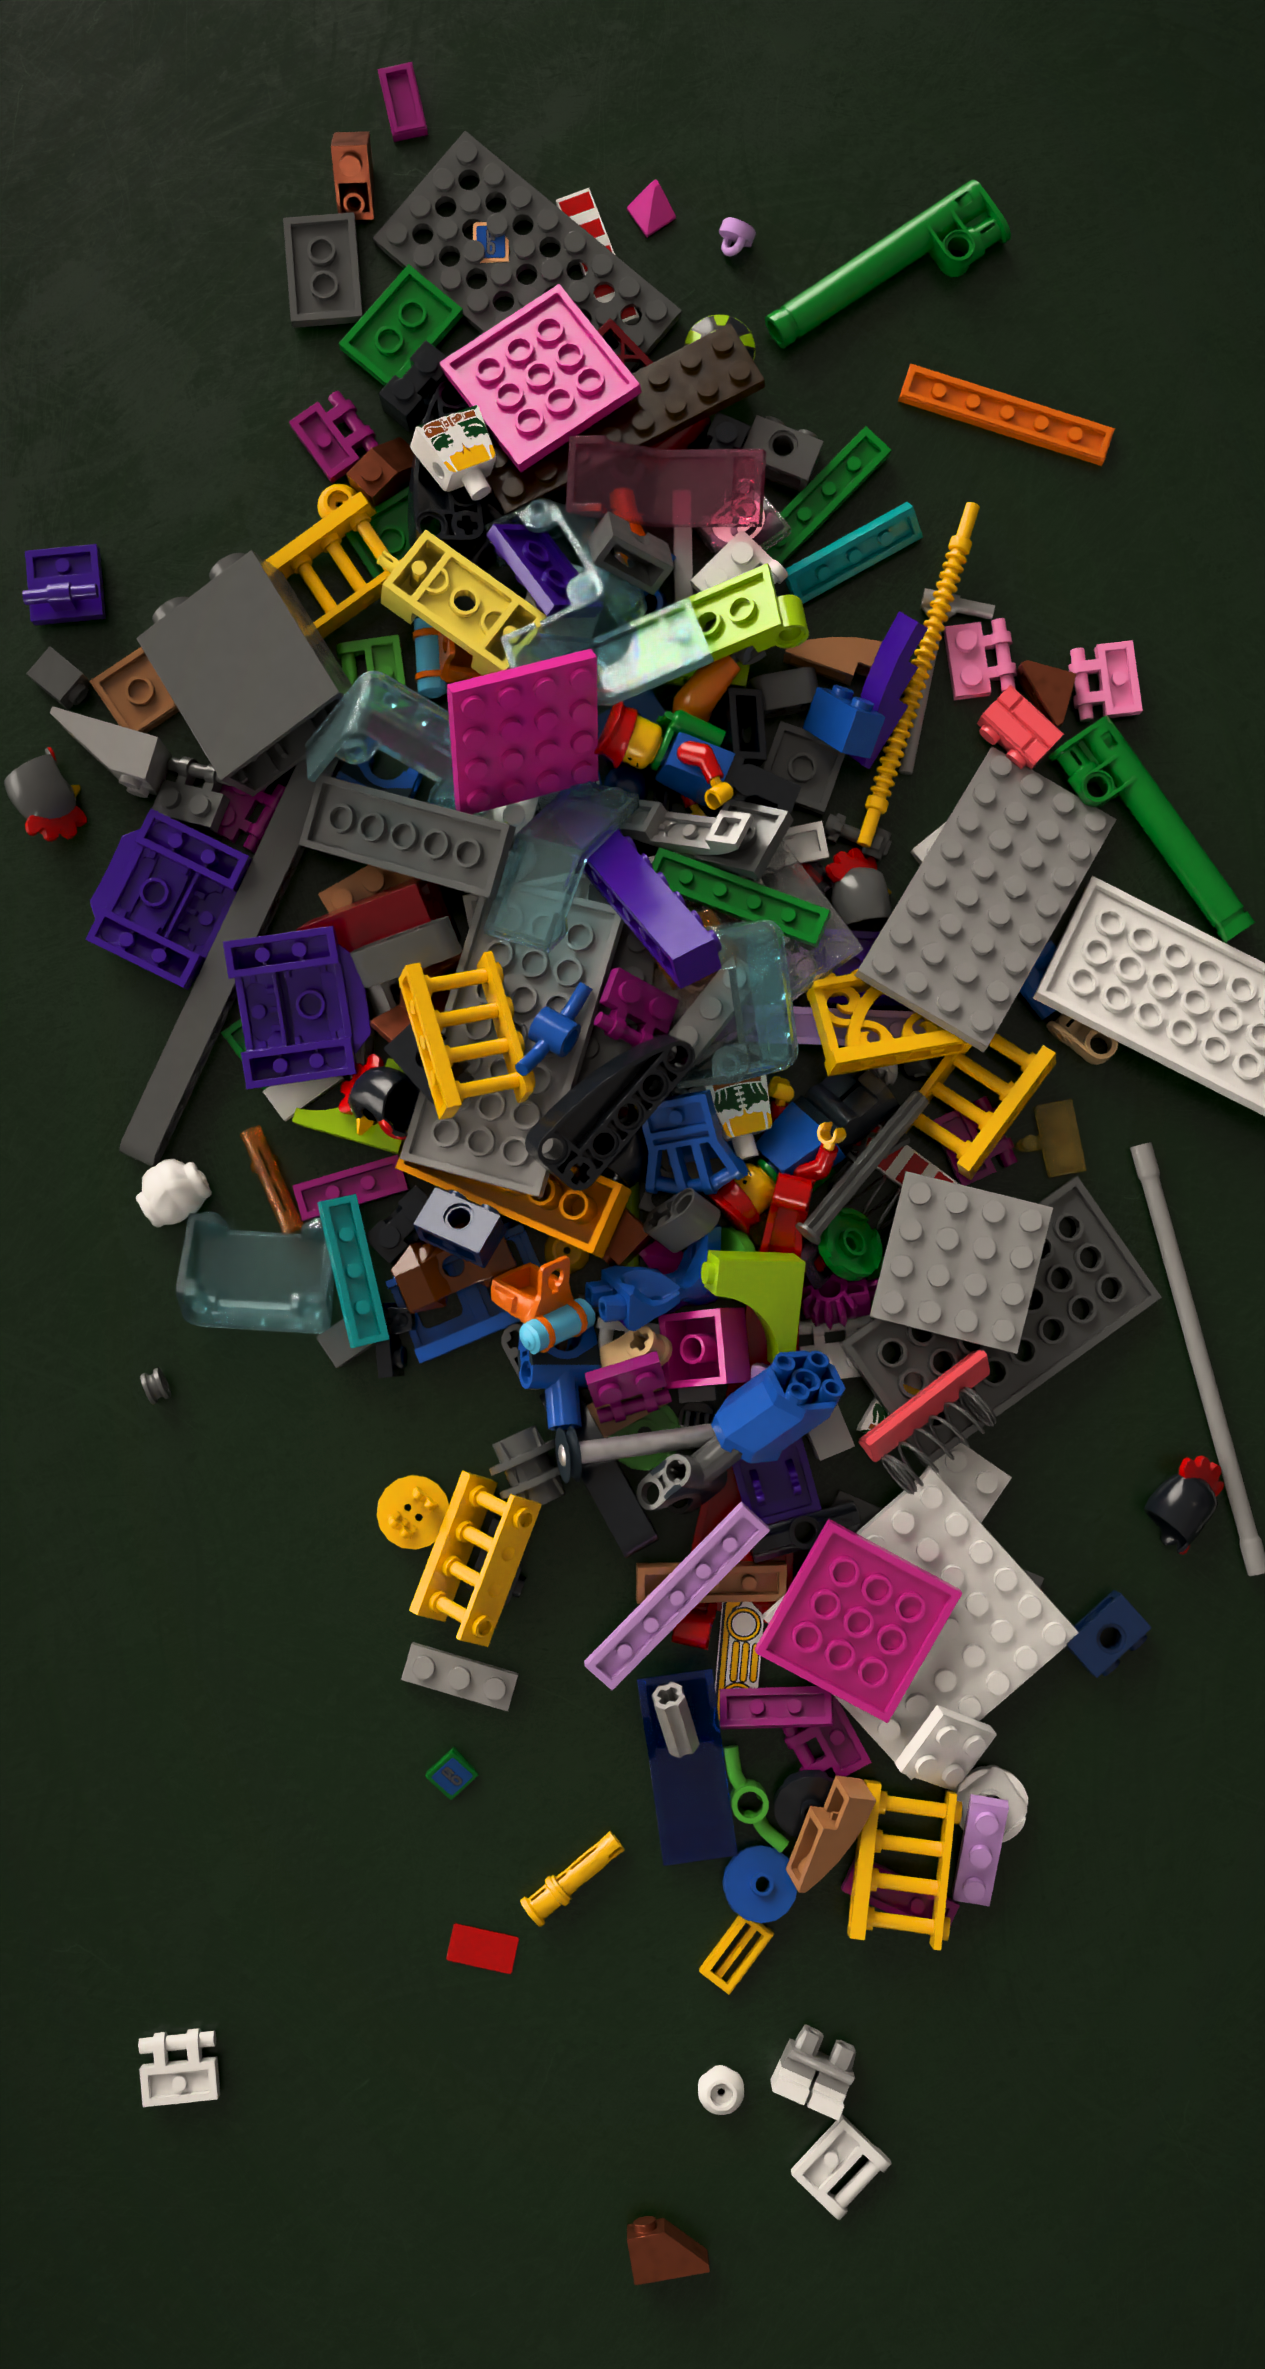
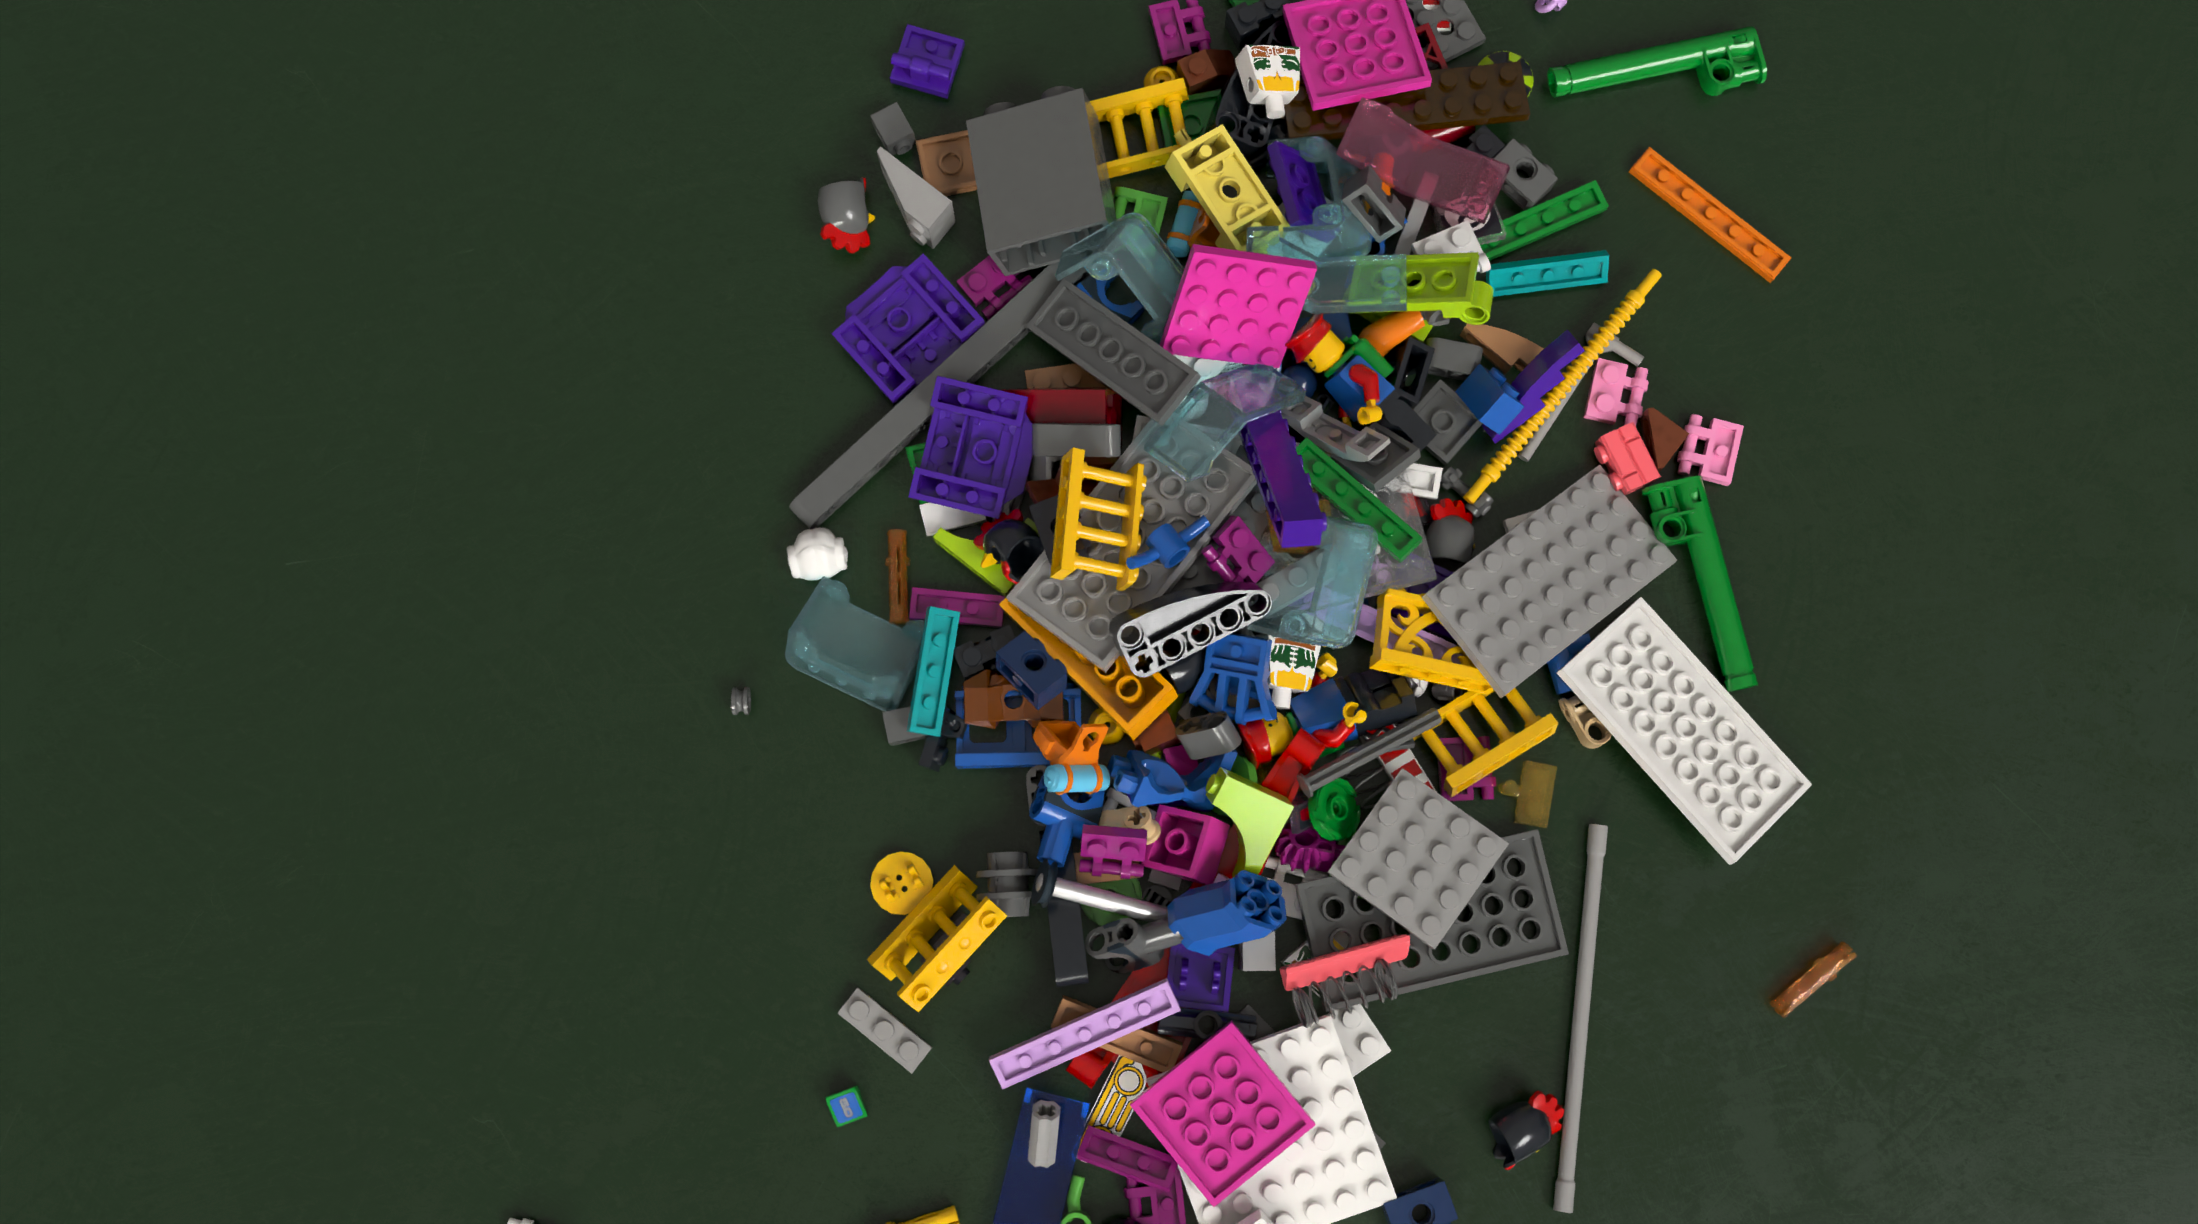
camera: 20 degrees right, 5 degrees down
(189, 804) = (955, 264): dark grey plate -> none

